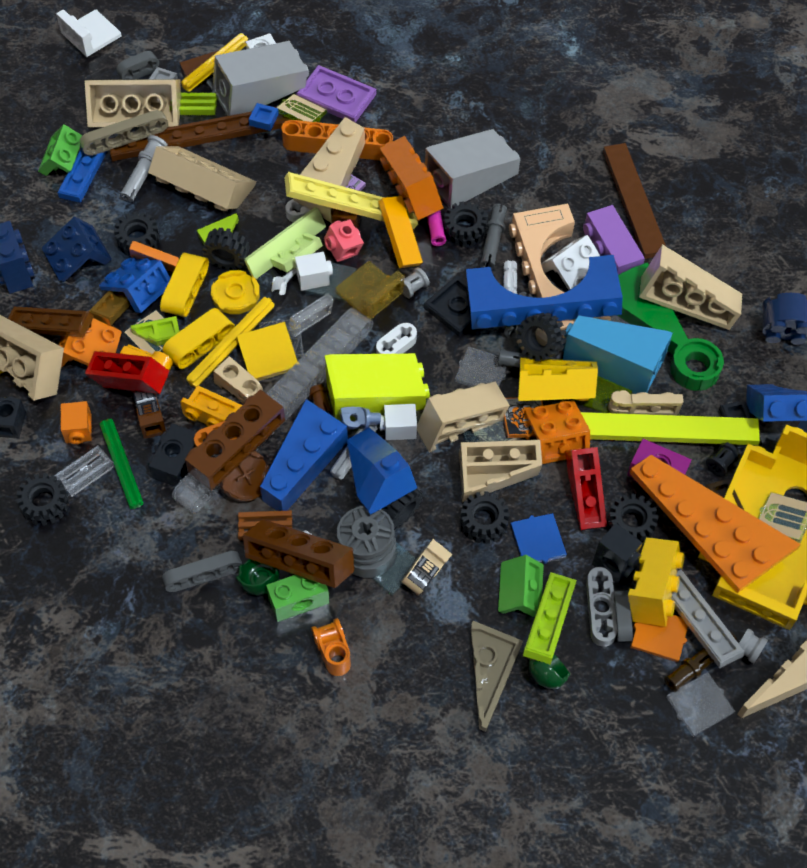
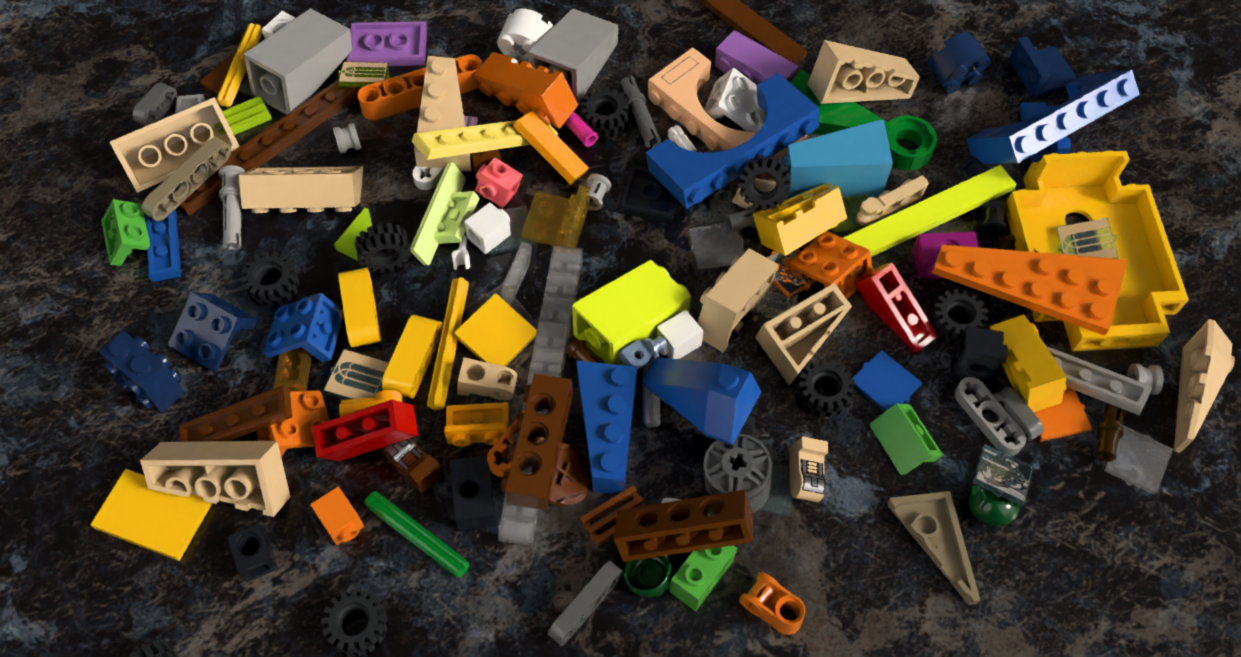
camera: 30 degrees left, 0 degrees up
(86, 474) = (391, 569): clear tile -> none
(88, 32) = (73, 93): white bracket -> none
(142, 251) = (293, 293): orange tile -> none
(157, 331) = (363, 370): lime tile -> none
(235, 292) = (417, 289): yellow tile -> none
(256, 154) = (347, 138): none -> light grey wheel
(263, 116) = (330, 96): blue plate -> none
(394, 340) = (612, 257): white beam -> none
(436, 130) = (521, 33): none -> white brick
(549, 618) = (962, 454): lime tile -> none
(577, 653) = (1003, 475): none -> piece

